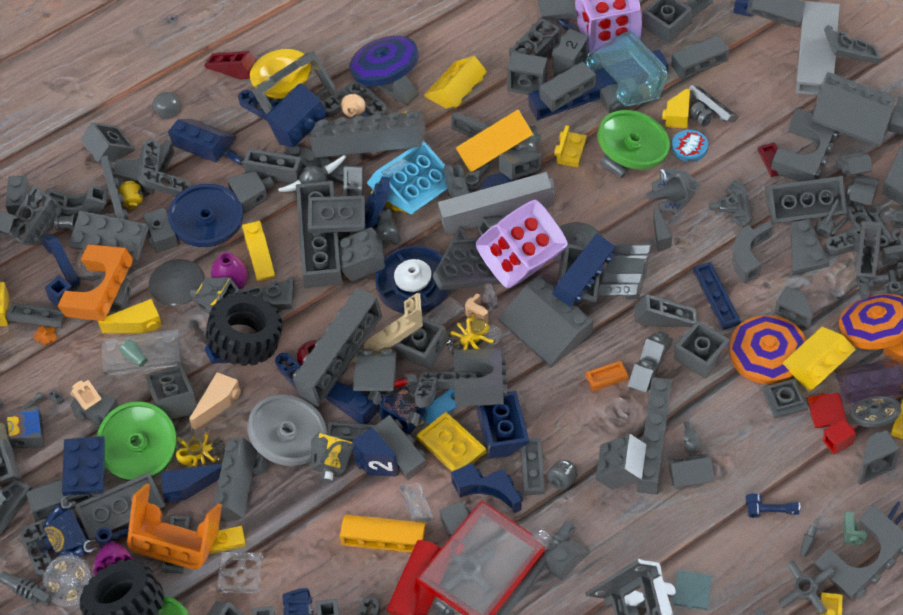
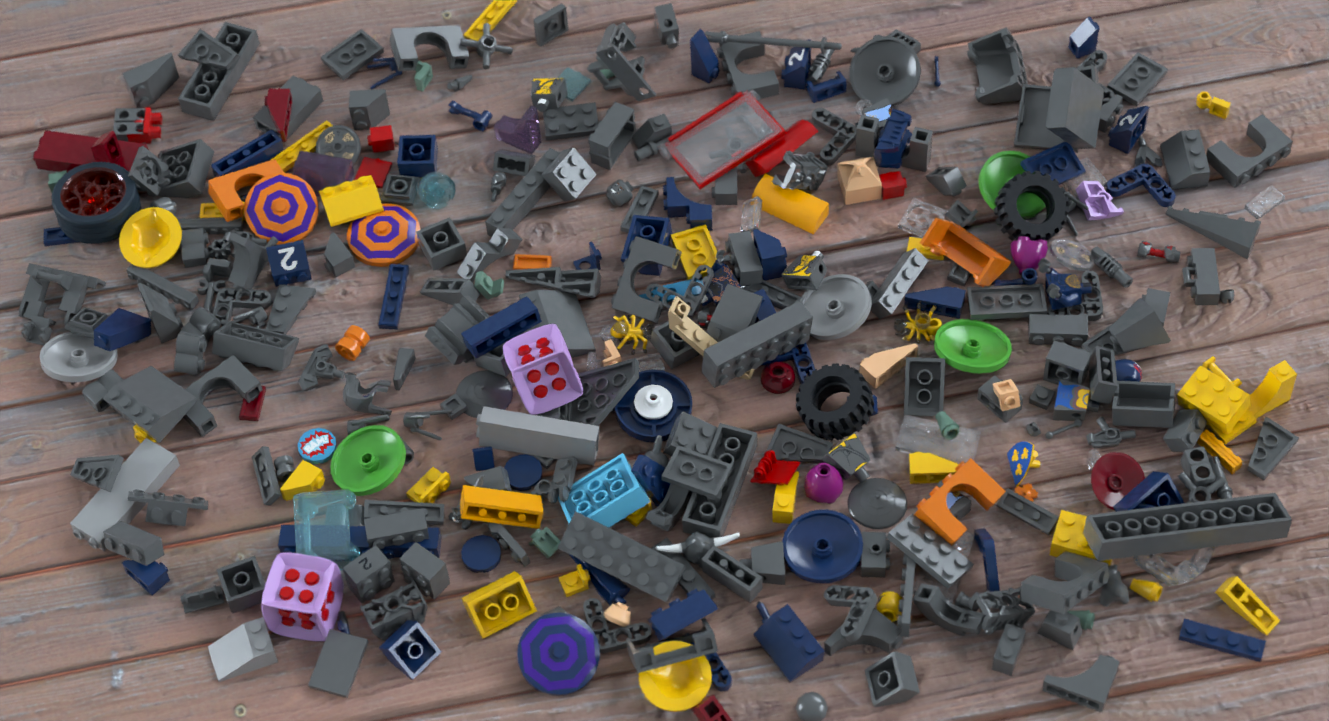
camera: 155 degrees left, 0 degrees up
(37, 451) = (1066, 364): none -> dark grey brick
(53, 351) = (1021, 458): none -> blue shield
(56, 289) = (997, 518): dark blue brick -> none
(57, 429) = (1042, 397): none -> dark grey plate
(83, 466) = (1028, 333): dark blue plate -> none
(198, 587) = (960, 214): none -> dark grey bracket
(274, 261) = (773, 470): none -> red hinge
(283, 586) = (892, 185): none -> red brick
(322, 579) = (859, 180): none -> light nougat piece
(381, 546) = (806, 177): none -> dark grey piece
(445, 139) = (545, 541): none -> sand green bracket
(492, 112) = (481, 554): none -> dark blue tile
(506, 27) = (410, 649): none -> dark blue slope
(549, 397) = (593, 259): none -> dark blue bracket
(553, 367) = (580, 282): none -> dark grey wedge
(576, 114) = (433, 512): none -> dark grey plate
(593, 216) = (455, 404): none -> dark grey plate
(604, 526) = (612, 135): none -> dark grey piece
(619, 191) = (416, 419): none -> dark grey plant
(631, 330) = (488, 287): none -> sand green bracket
(664, 541) = (570, 121): none -> dark grey plate
(669, 164) = (353, 425): none -> dark grey plant
(700, 57) = (242, 531): dark grey brick -> none
(702, 551) = (548, 93): none -> dark grey torso
(704, 497) = (521, 132): none -> clear purple arch
(720, 231) = (352, 343): none -> orange wheel
(743, 260) = (335, 327): dark grey arch -> none
(748, 403) = (436, 190): none -> clear light blue cylinder
(774, 46) = (167, 509): none -> dark grey bracket
(788, 430) = (417, 155): none -> dark blue brick
(830, 276) = (289, 263): none -> dark blue slope

